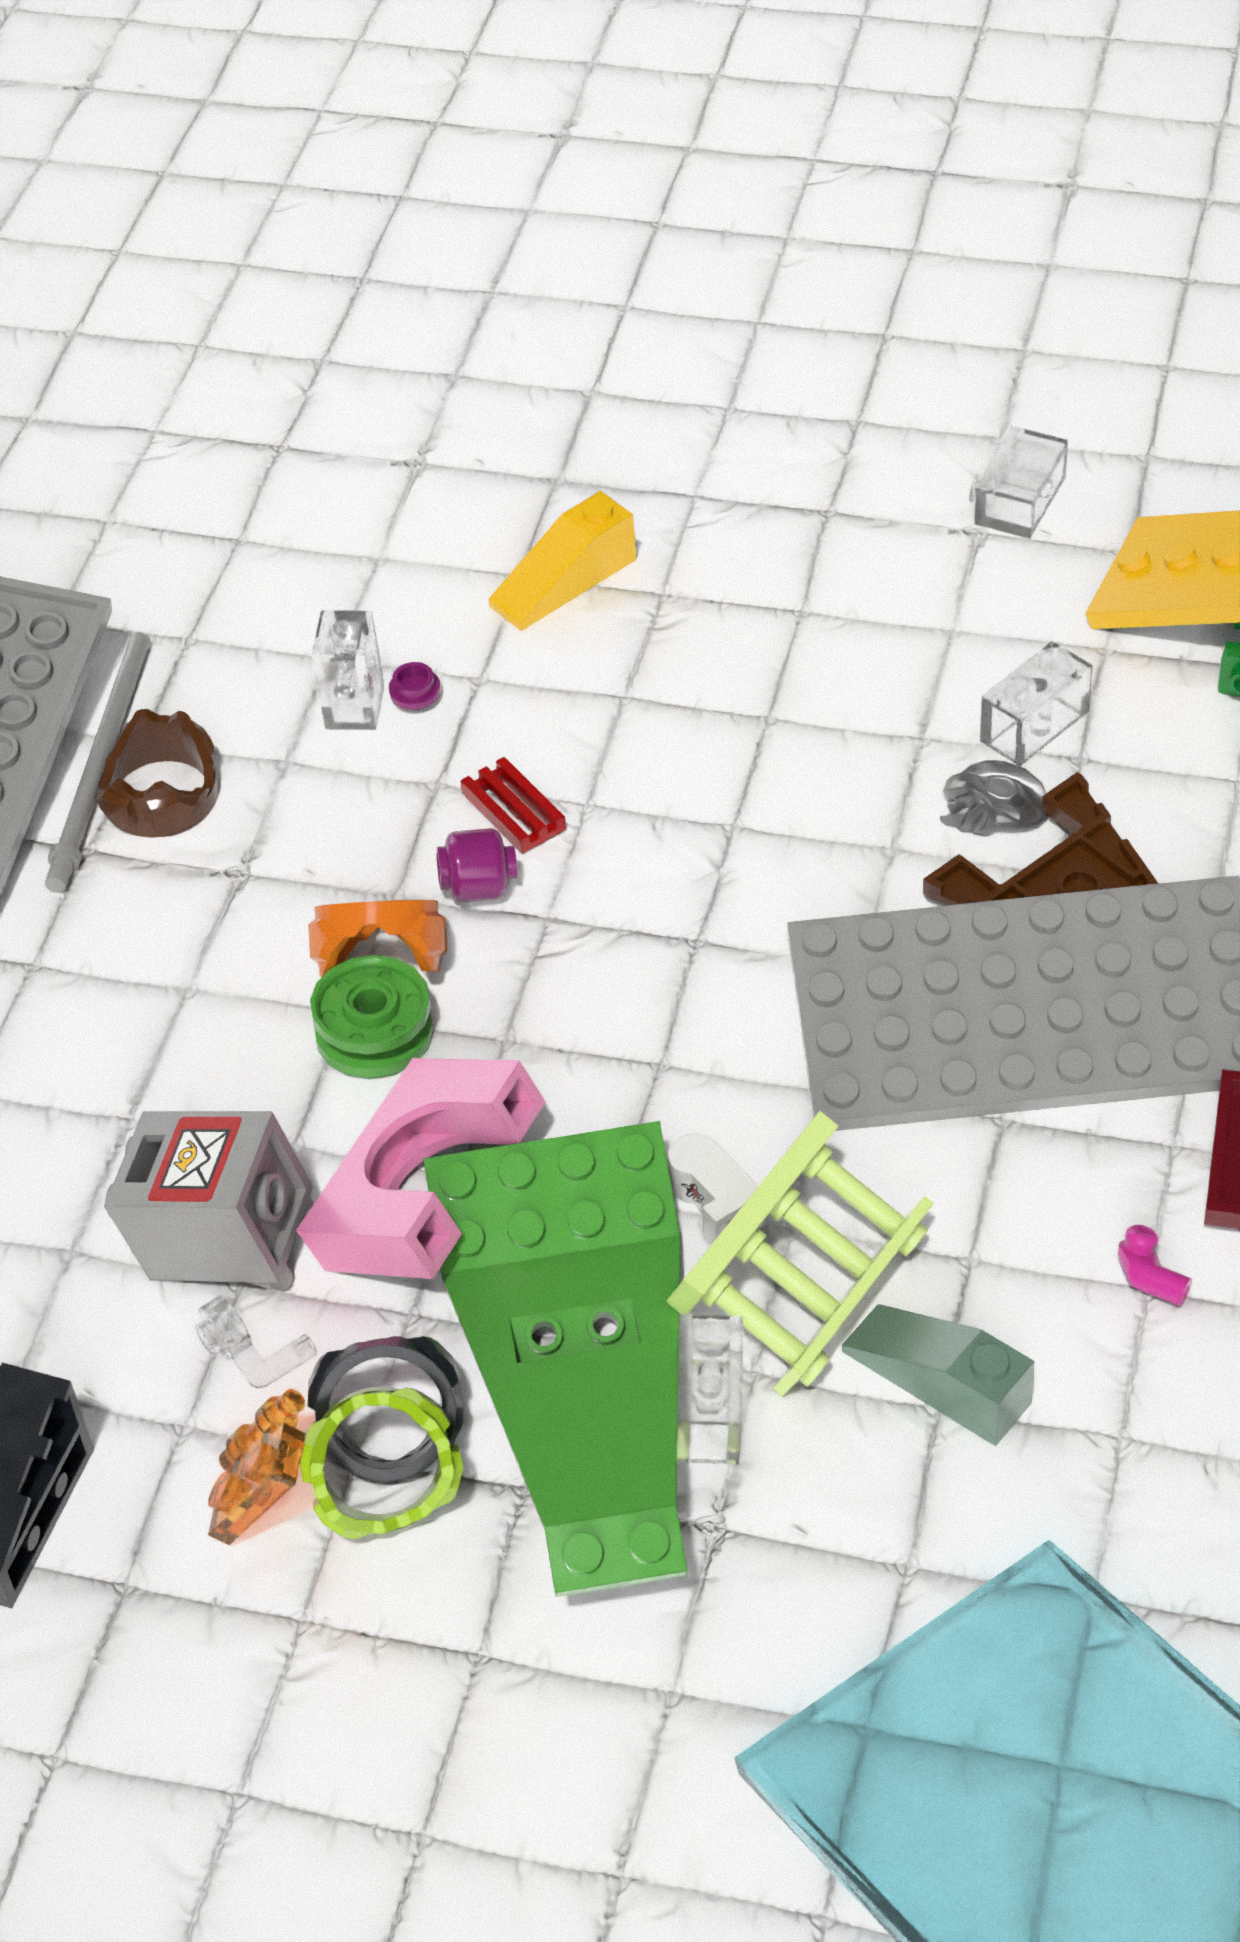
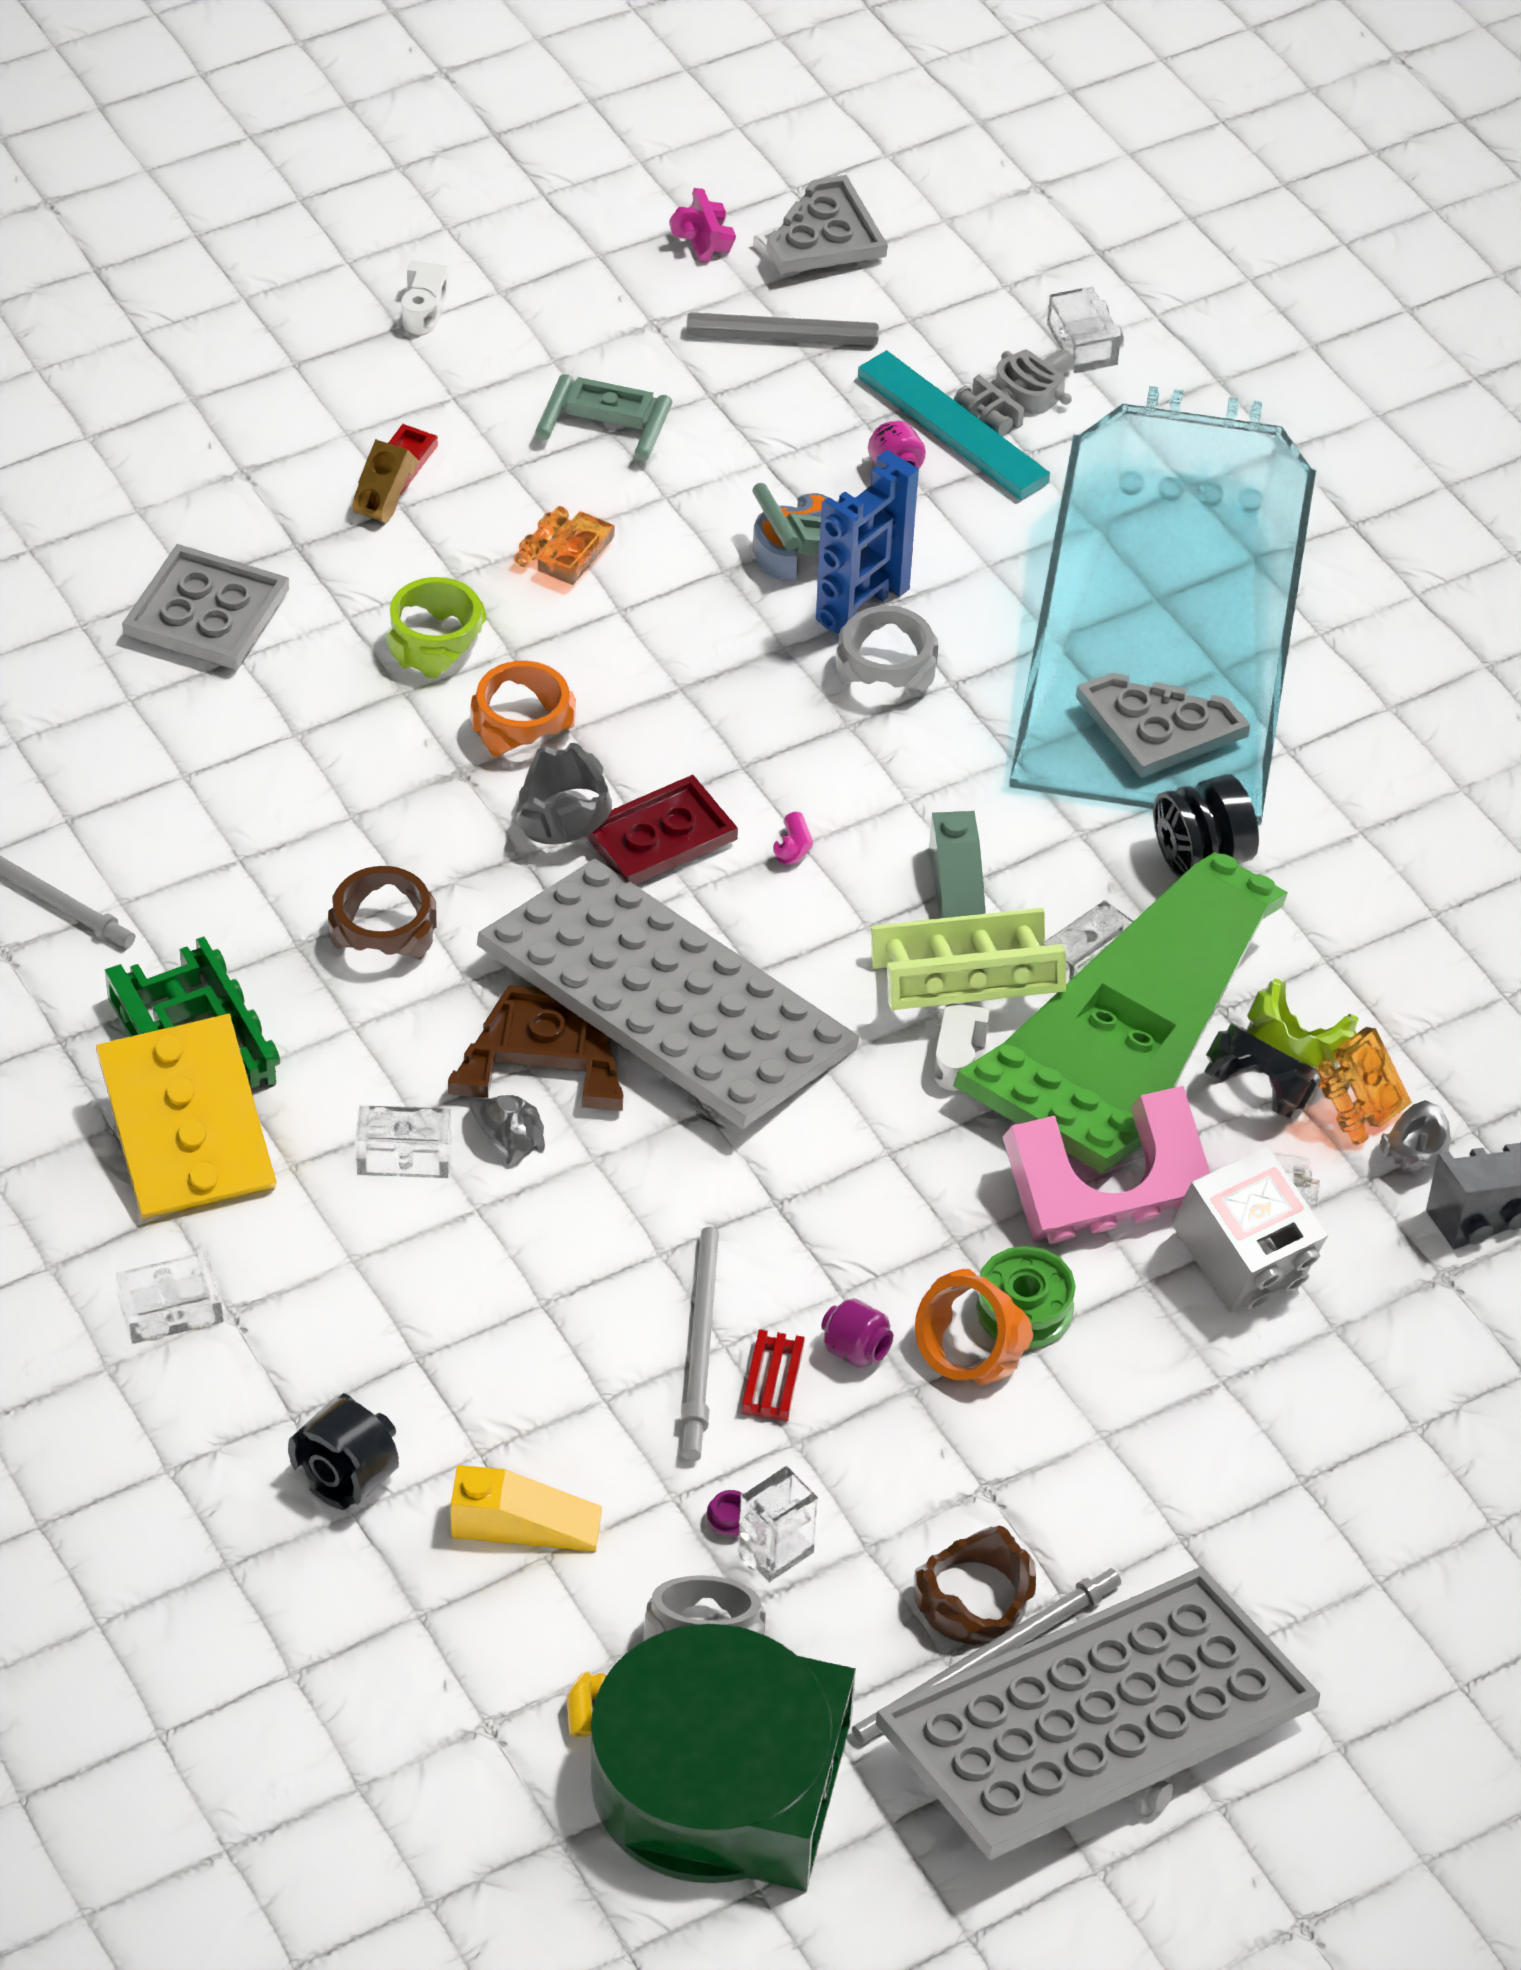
camera: 140 degrees left, 0 degrees up
(157, 1484) = (1417, 1137): none -> flat silver hat
(203, 516) = (719, 1754): none -> dark green brick
(347, 547) = (677, 1594): none -> light grey piece
(365, 501) = (580, 1703): none -> yellow arm
(536, 728) = (695, 1412): none -> light grey bar
(731, 475) = (345, 1451): none -> black brick
(752, 1631) = (1205, 821): none -> black wheel
(985, 1767) = (1159, 722): none -> light grey plate

